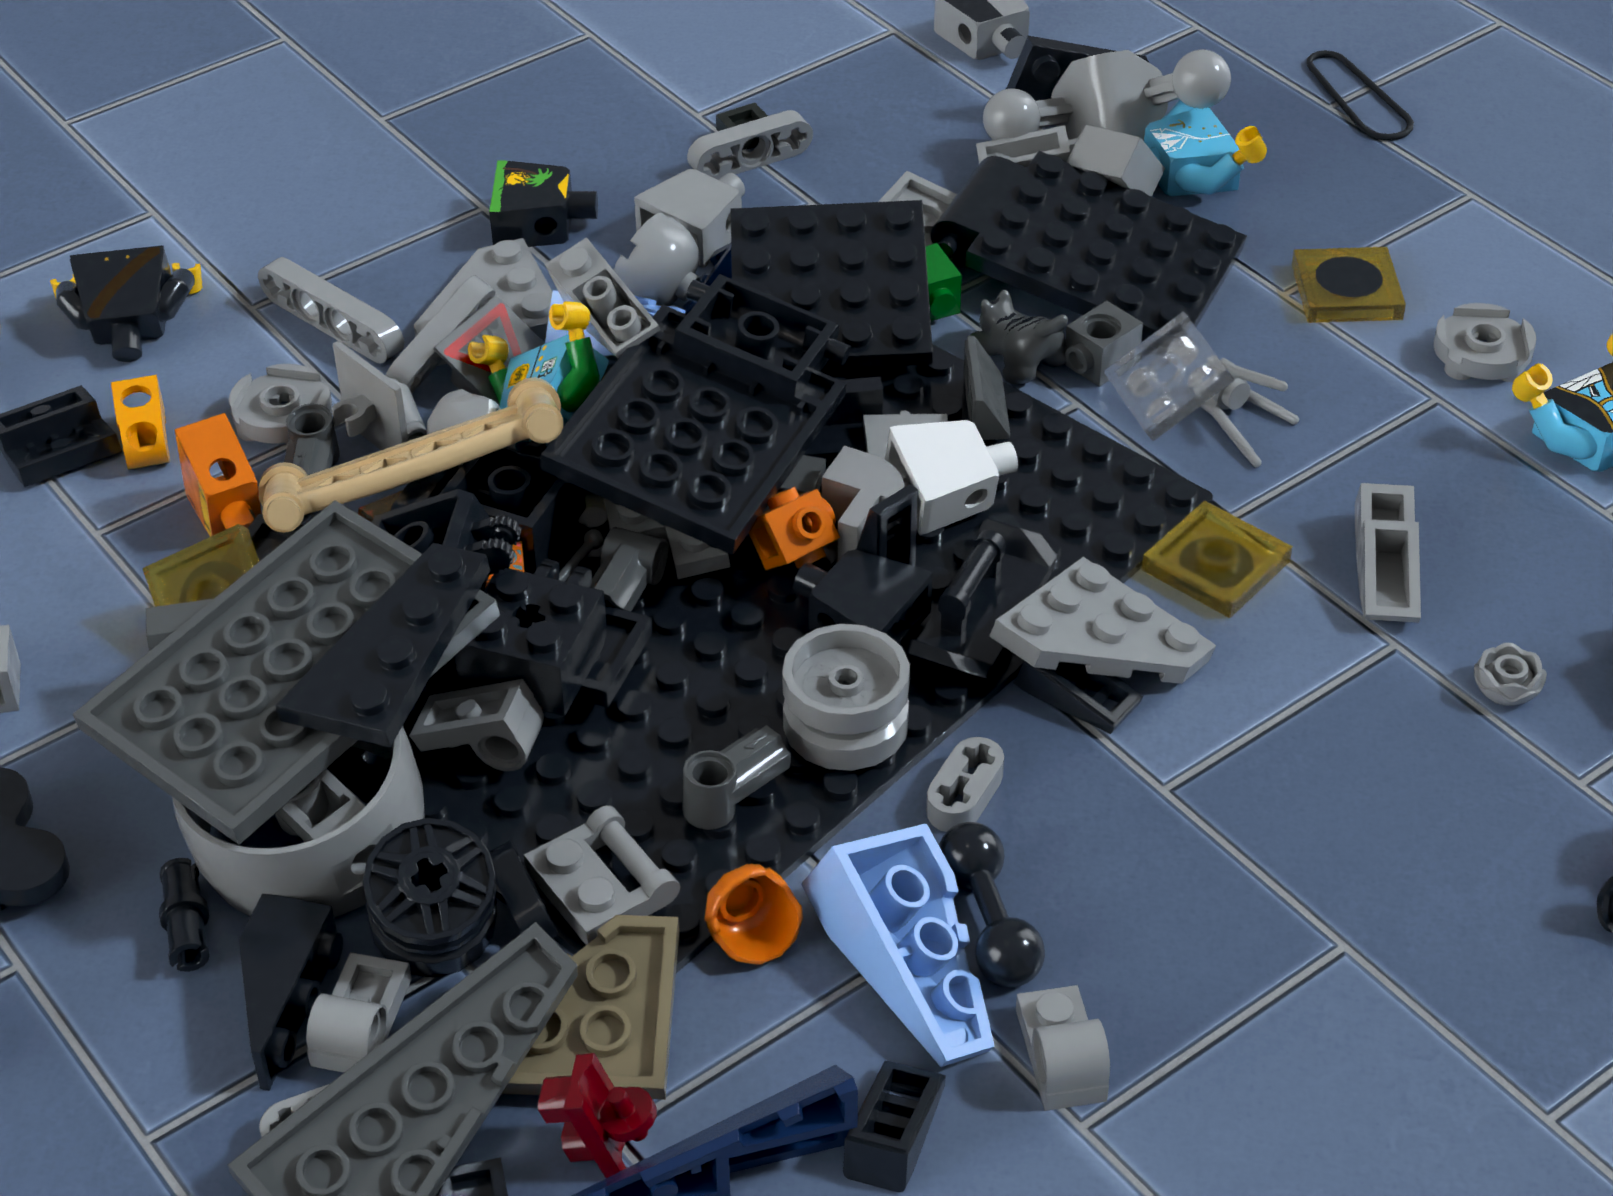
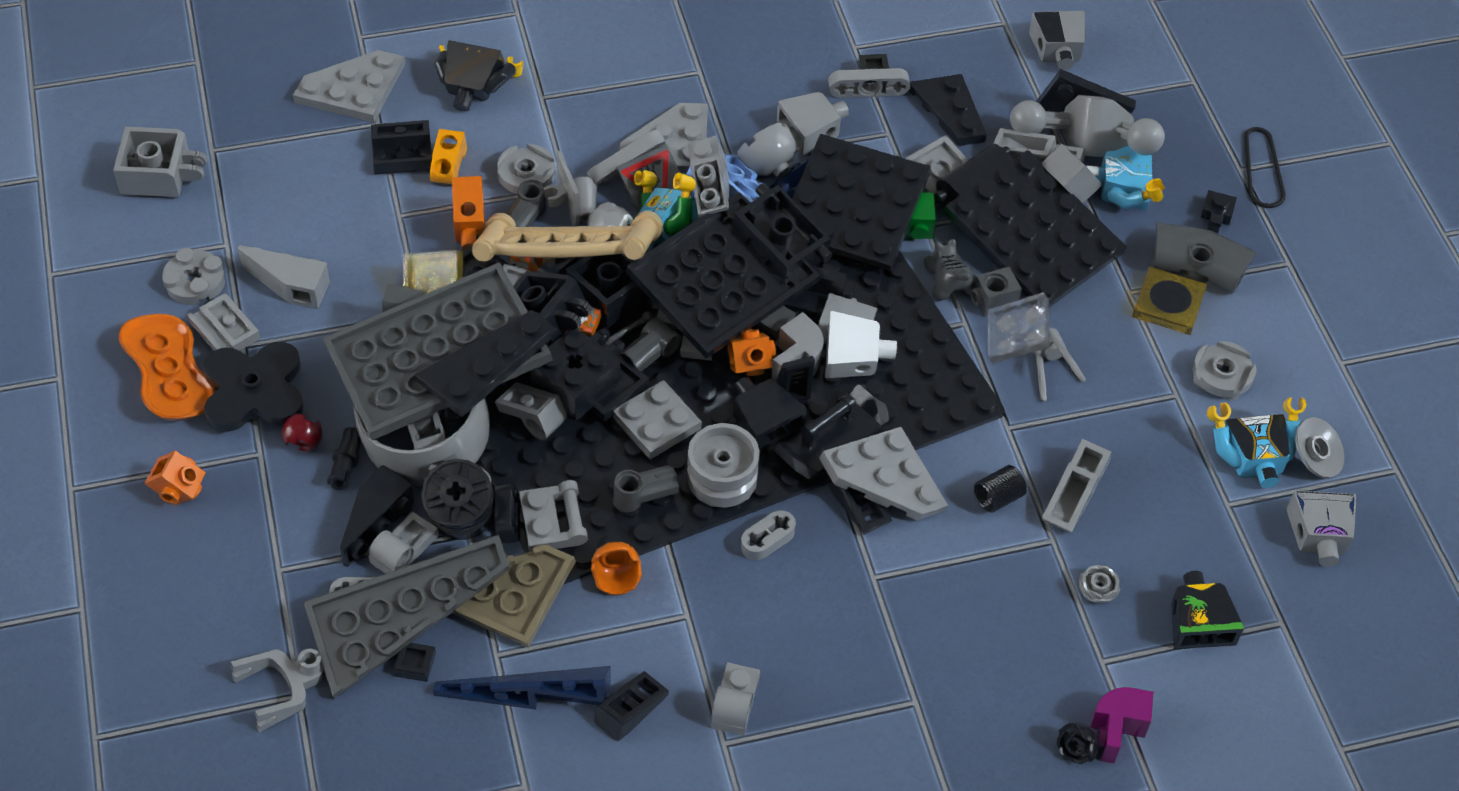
camera: 20 degrees right, 10 degrees up
(86, 898) = (302, 432): none -> dark red piece
(331, 310) = (580, 117): light grey beam -> none
(536, 203) = (724, 83): black torso -> none
(596, 1114) = (484, 644): dark red hips -> none
(692, 676) = (657, 419): none -> light grey plate
(885, 140) = (953, 107): none -> black wing
(897, 924) = (687, 605): light blue wedge -> none
(984, 392) = (907, 302): dark grey slope -> none
(1008, 947) = (736, 636): black piece -> none
(1217, 558) = (981, 449): clear yellow tile -> none
(1280, 594) = (1000, 488): none -> black piece
(1336, 156) = (1218, 210): none -> black plate
(1355, 215) = (1201, 255): none -> dark grey panel

